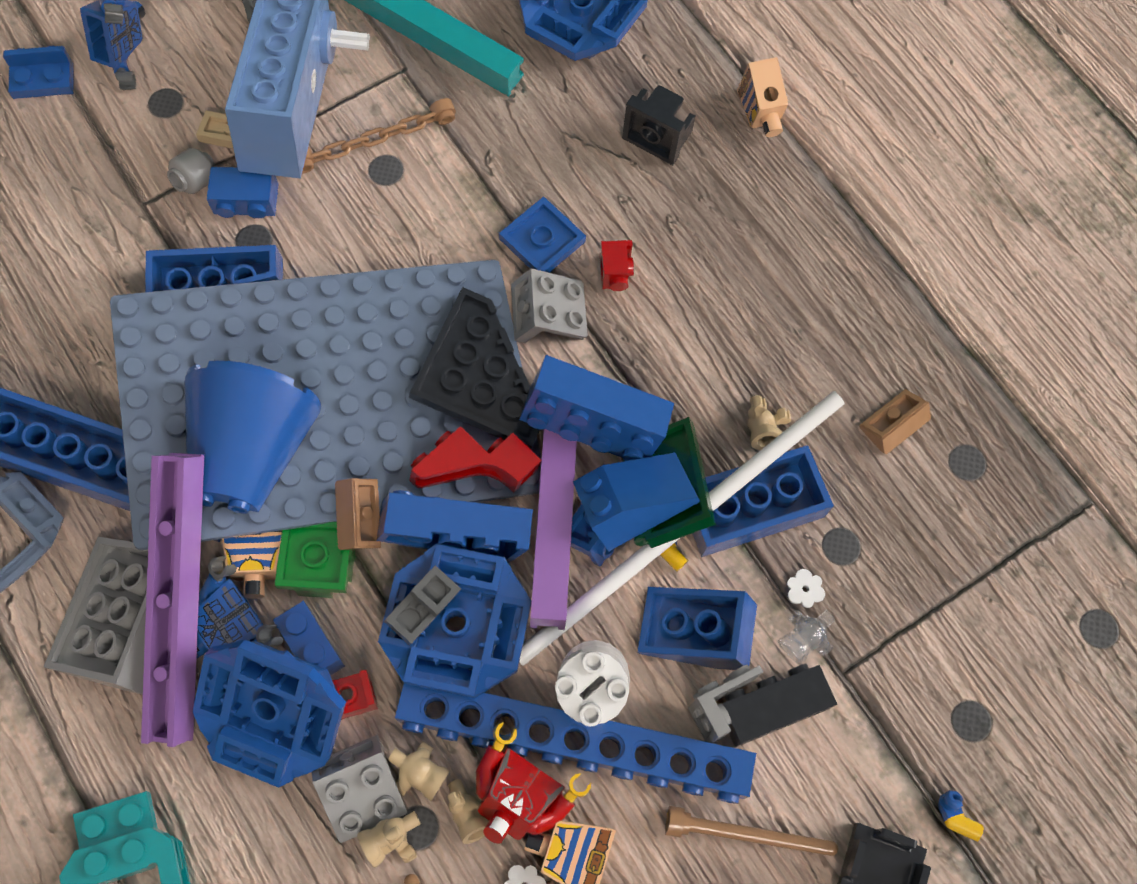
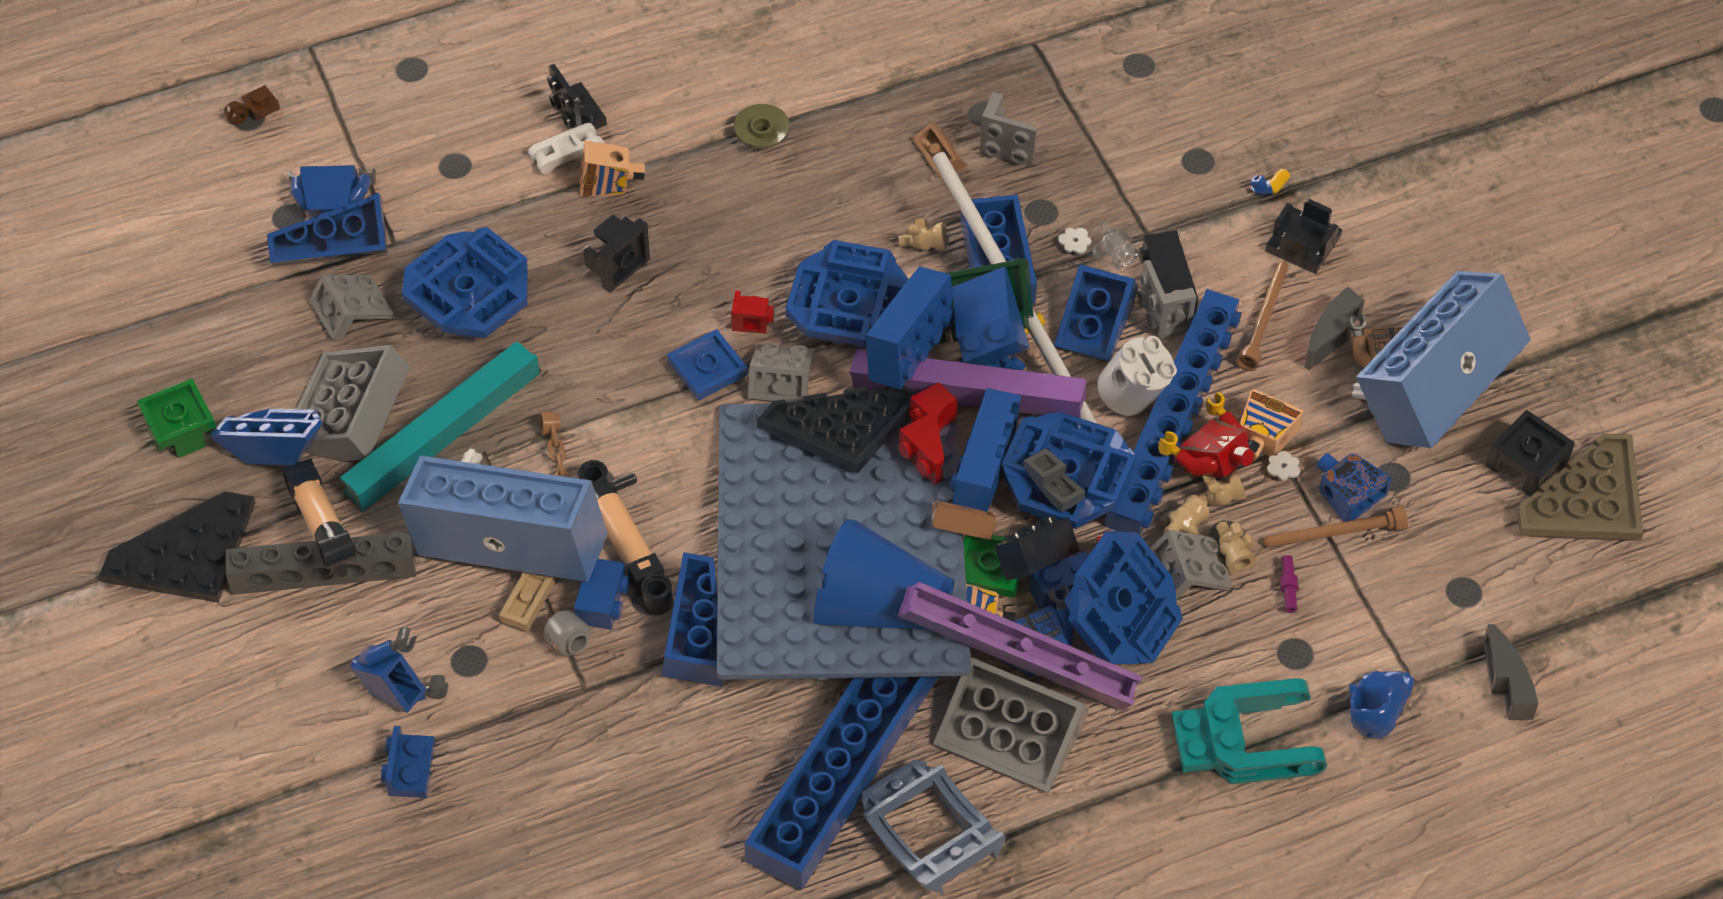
camera: 75 degrees left, 15 degrees down
(277, 222) = (642, 566): none -> piece
(328, 601) = (1036, 547): none -> black brick
(652, 323) = (843, 291): none -> blue piece
(791, 62) = (563, 146): none -> white plate
(842, 54) = (573, 102): none -> black bracket
(874, 222) = (761, 126): none -> olive dish
(931, 467) = (1006, 137): none -> light grey bracket

